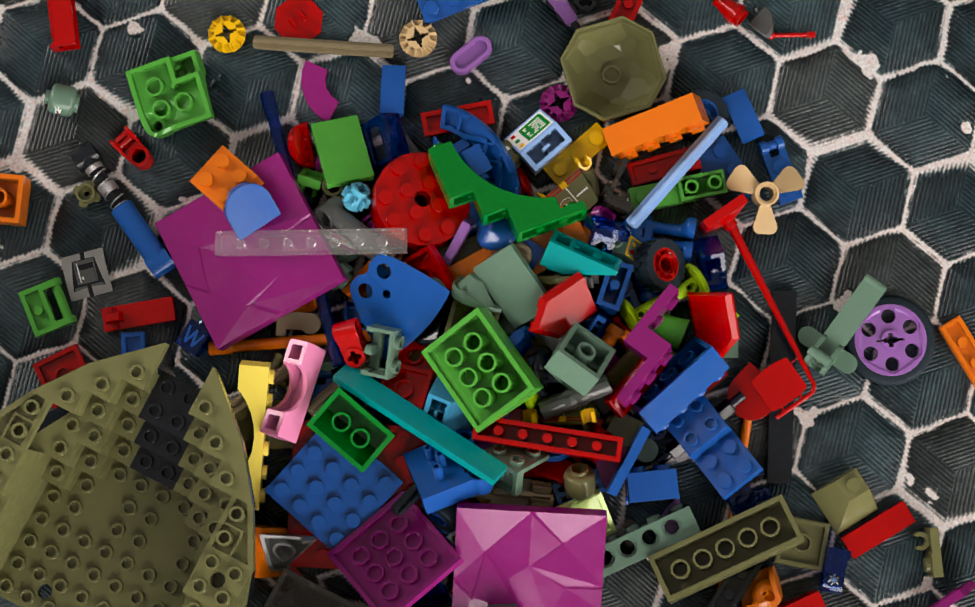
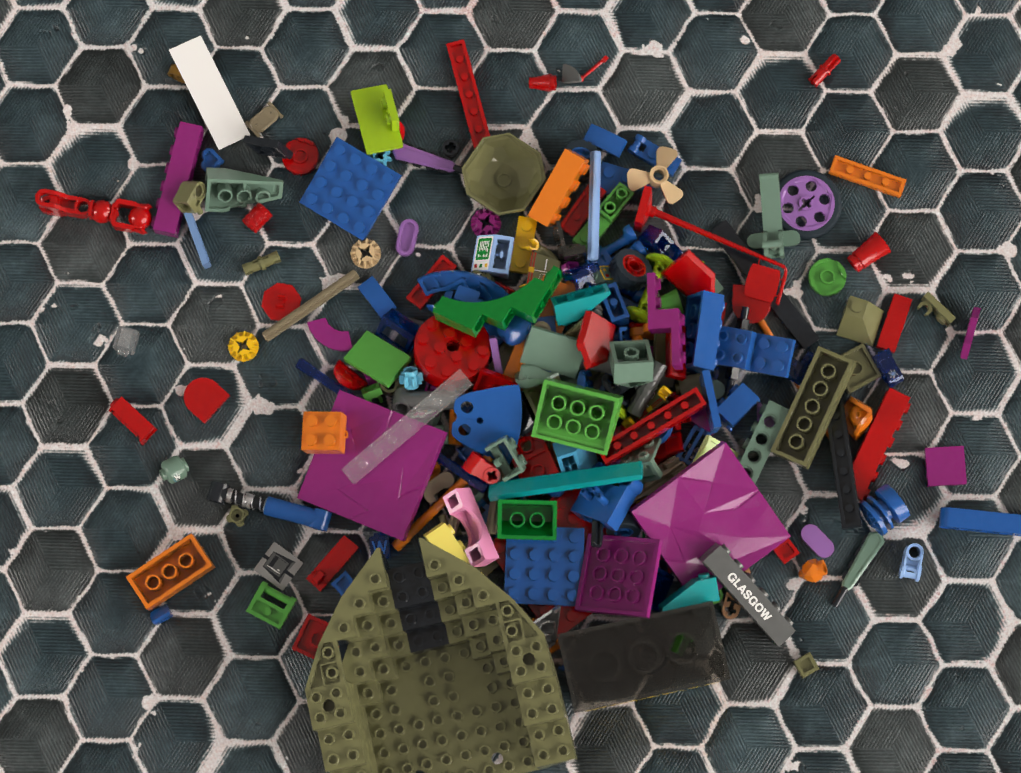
camera: 40 degrees left, 5 degrees down
(130, 147) = (240, 463): red piece -> none
(145, 47) = (204, 398): none -> red tile
(171, 93) = (240, 409): bright green slope -> none
(249, 208) = (352, 436): tile -> none
(579, 481) = (691, 438): olive head -> none
(849, 429) = (827, 277): none -> bright green tile
(911, 440) = (868, 252): none -> red plant

